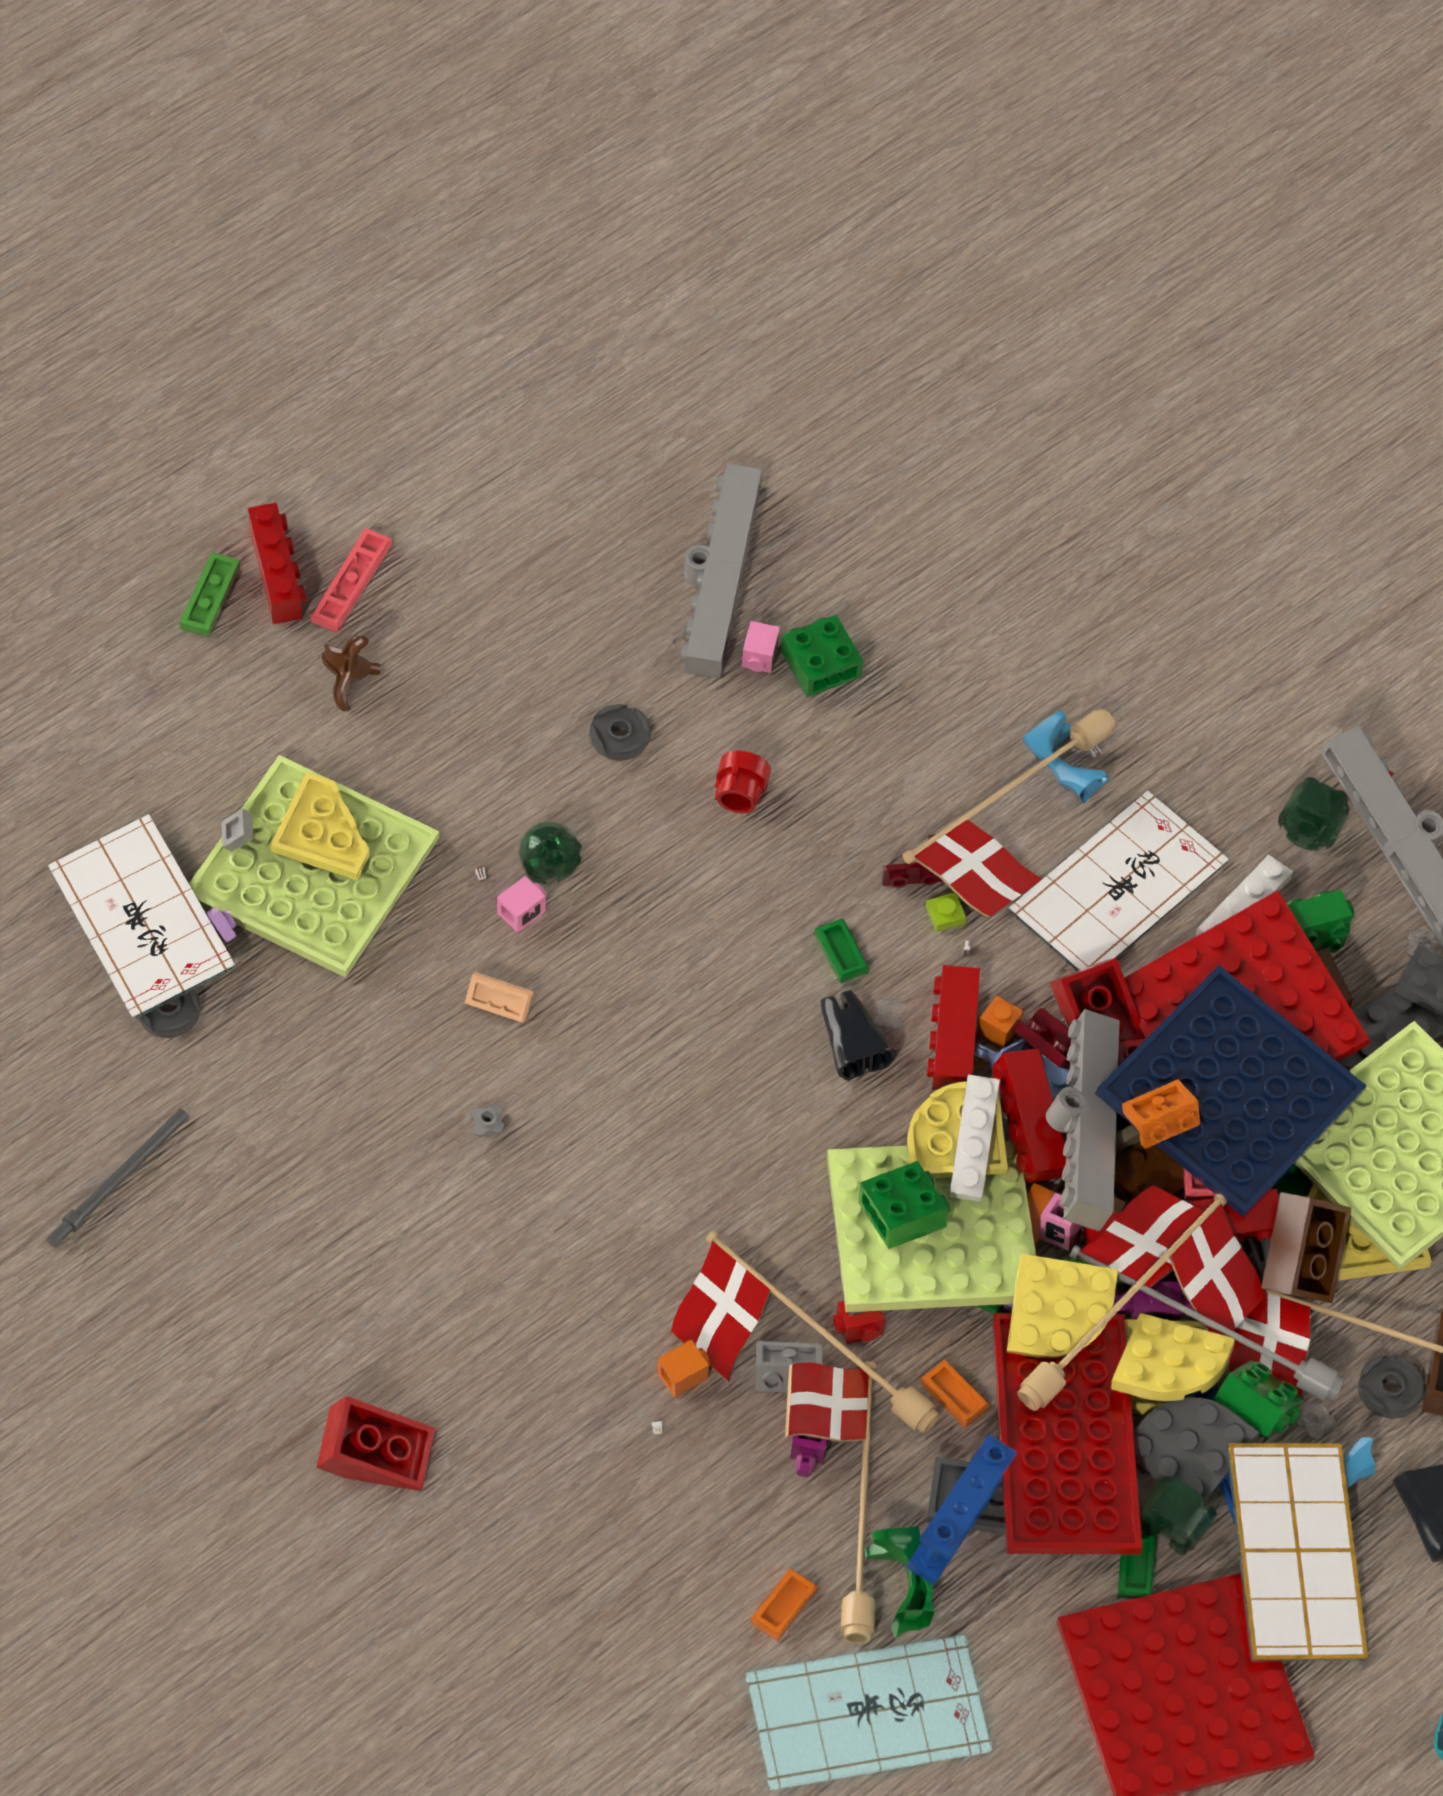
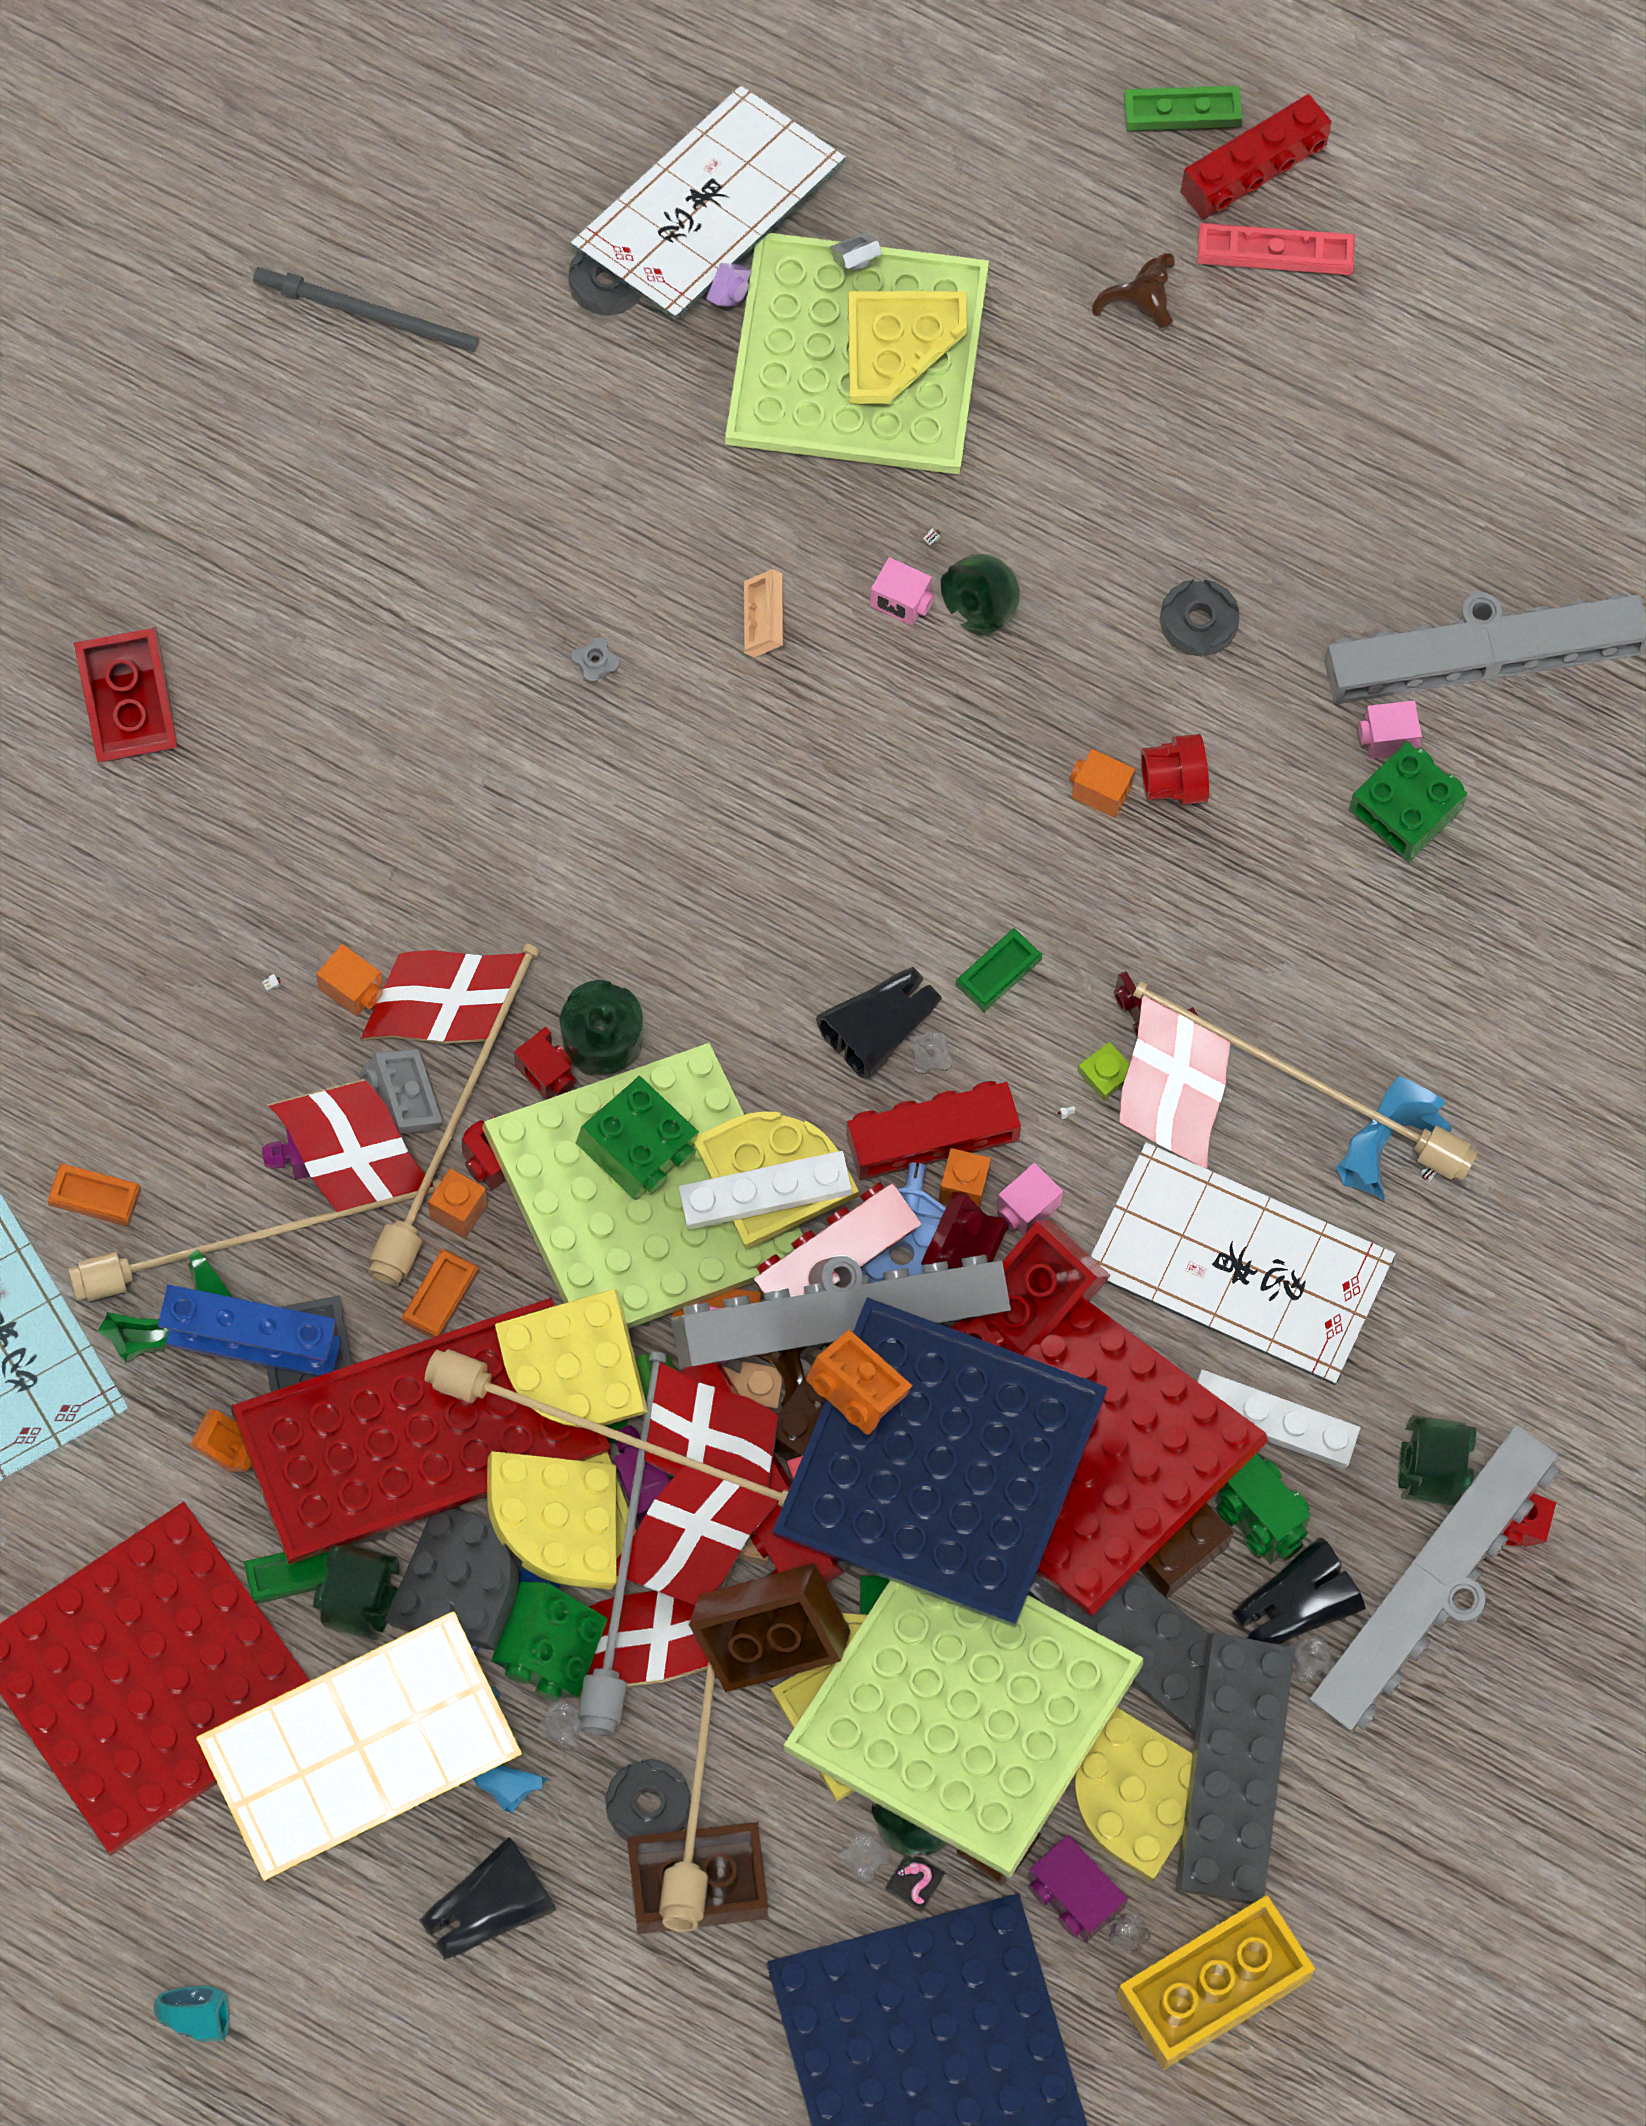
camera: 70 degrees right, 10 degrees up
(727, 833) = (1102, 782): none -> orange brick
(792, 1211) = (619, 1014): none -> clear green brick
(804, 1260) = (544, 1065): none -> red brick
(893, 1353) = (457, 1203): none -> orange brick
(1024, 1572) = (221, 1442): none -> orange bracket
(1028, 989) = (1029, 1199): none -> bright pink brick
(1380, 932) = (1301, 1596): none -> black piece

